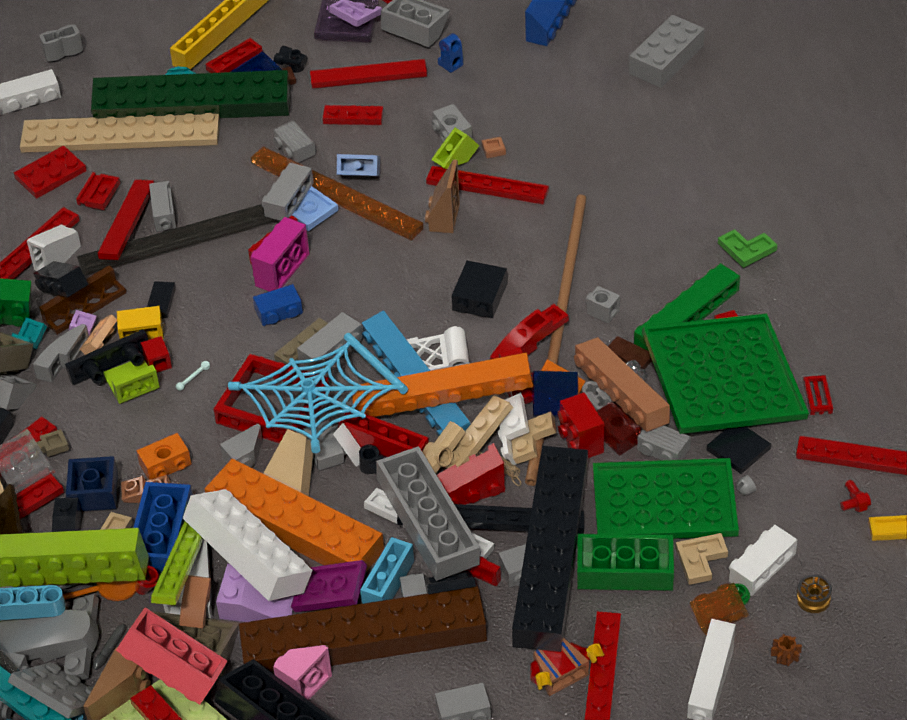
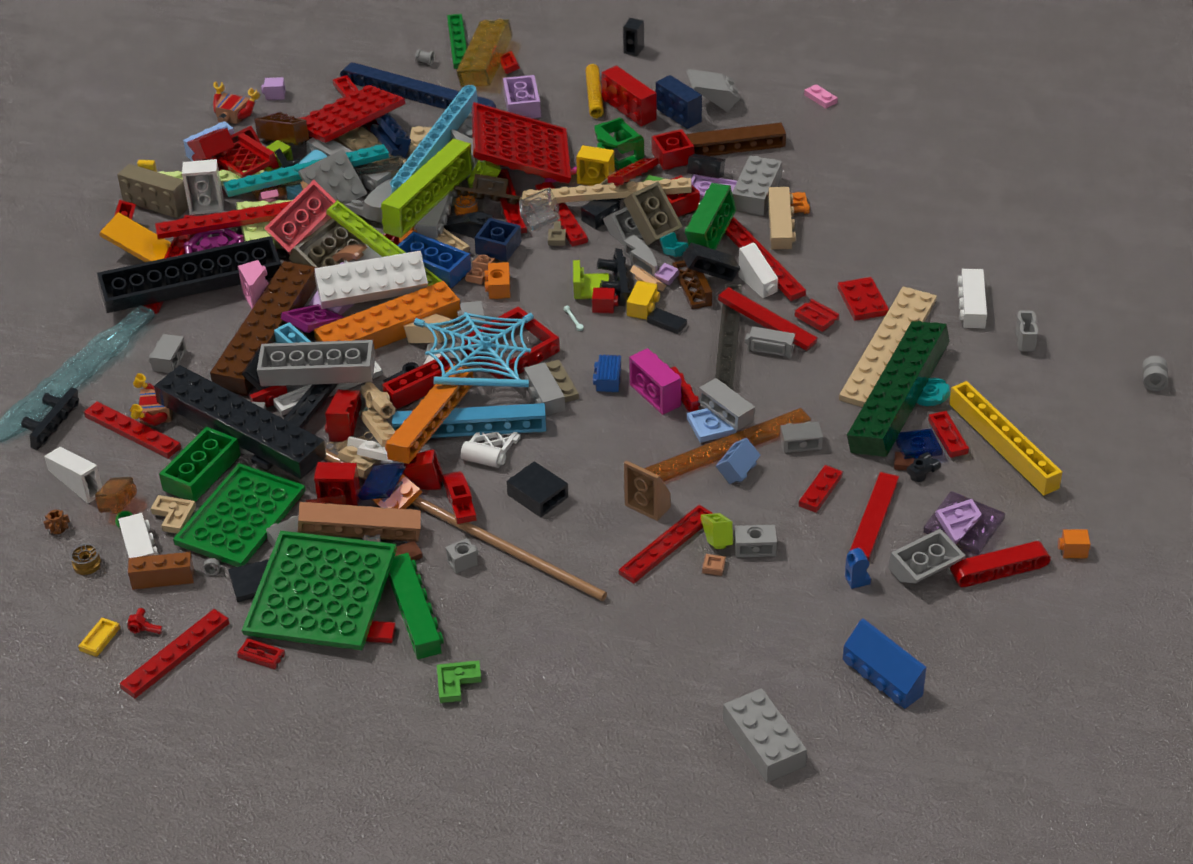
camera: 115 degrees right, 5 degrees down
(781, 510) = (161, 570): none -> dark orange brick

